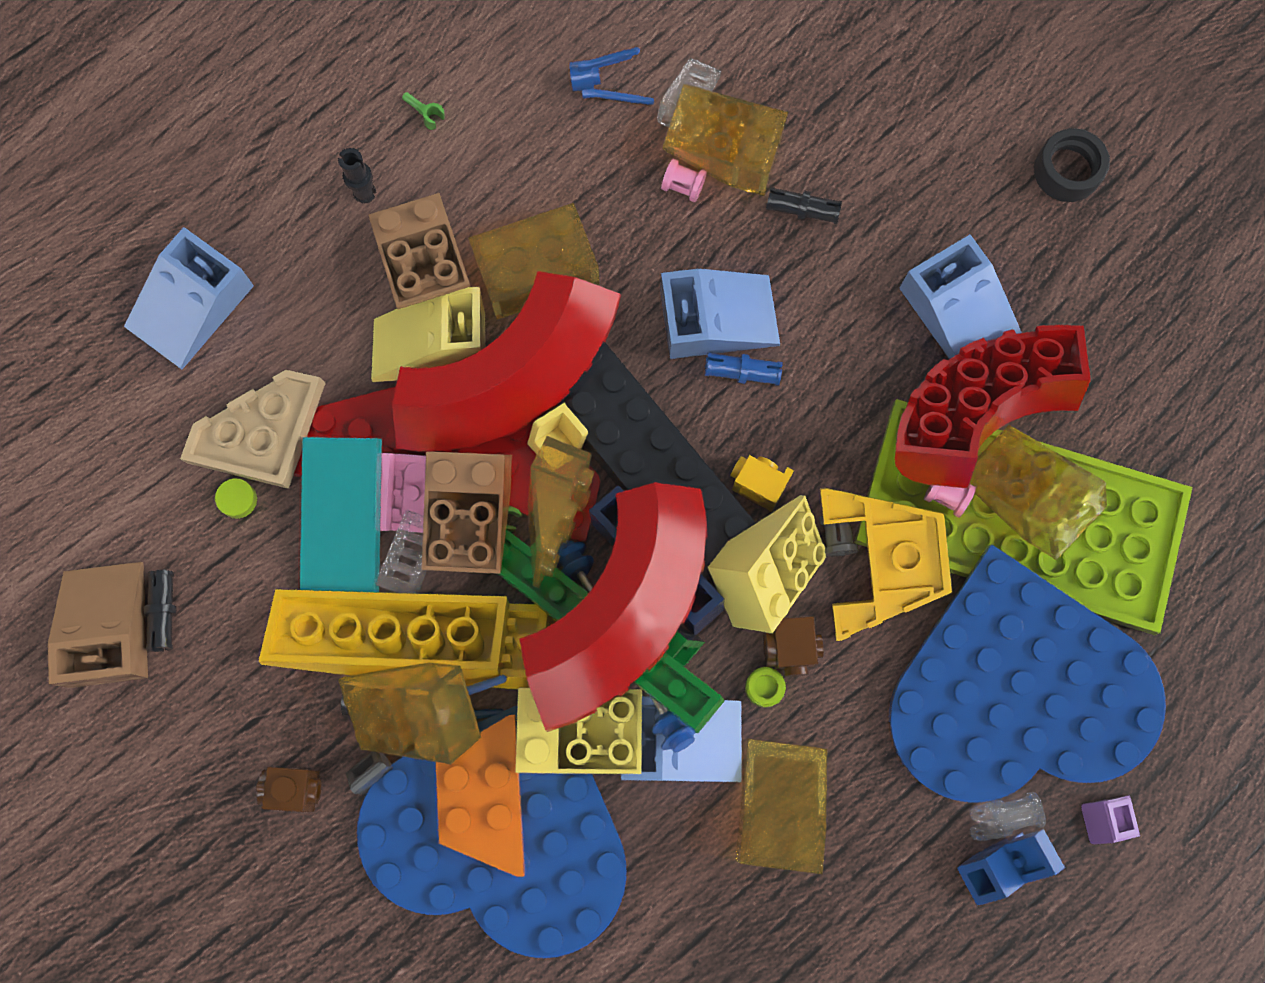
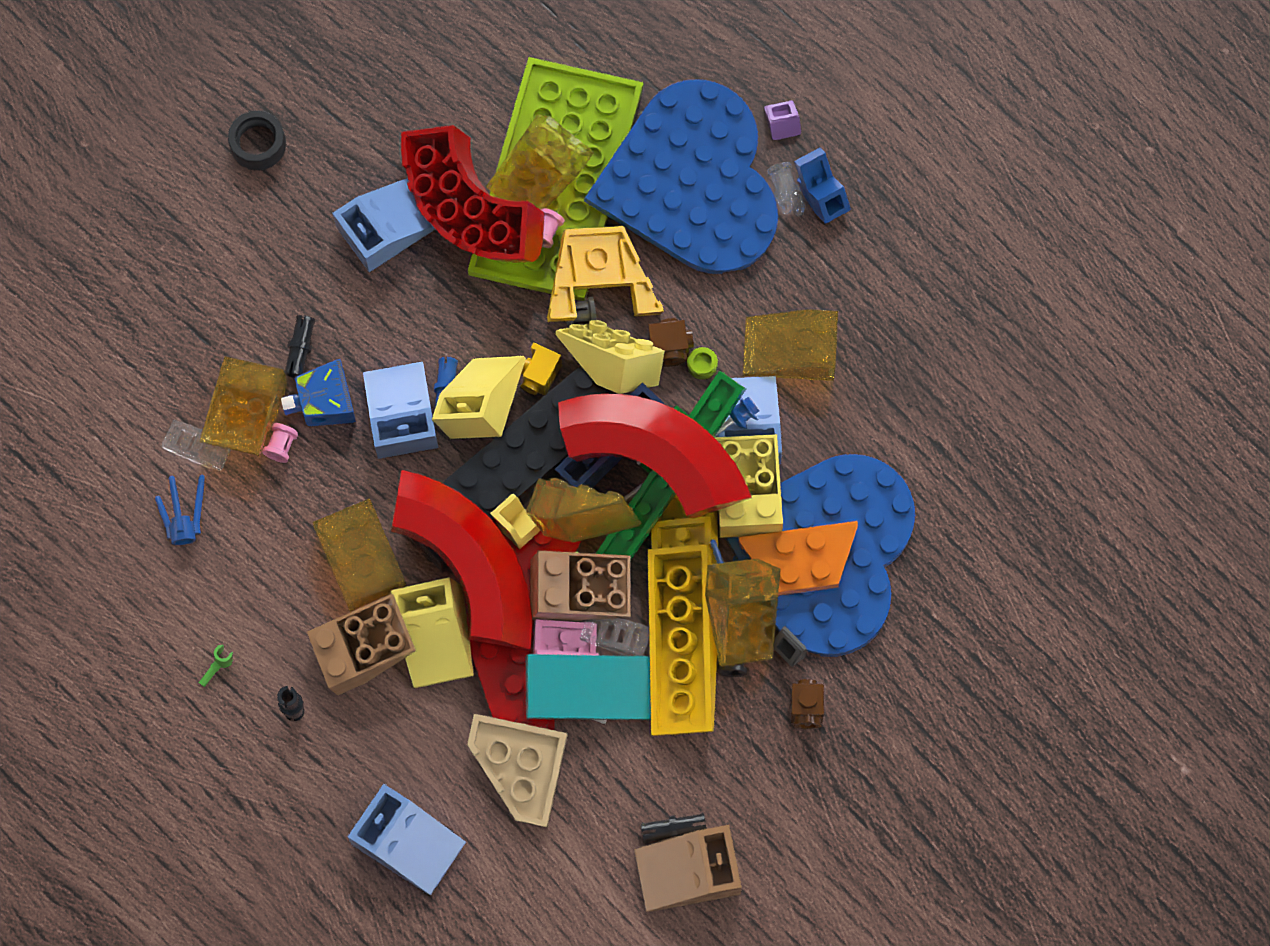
camera: 90 degrees left, 5 degrees down
(236, 498) = (576, 782): lime tile -> none
(724, 401) = (479, 398): none -> light yellow slope
(740, 228) = (322, 396): none -> blue torso

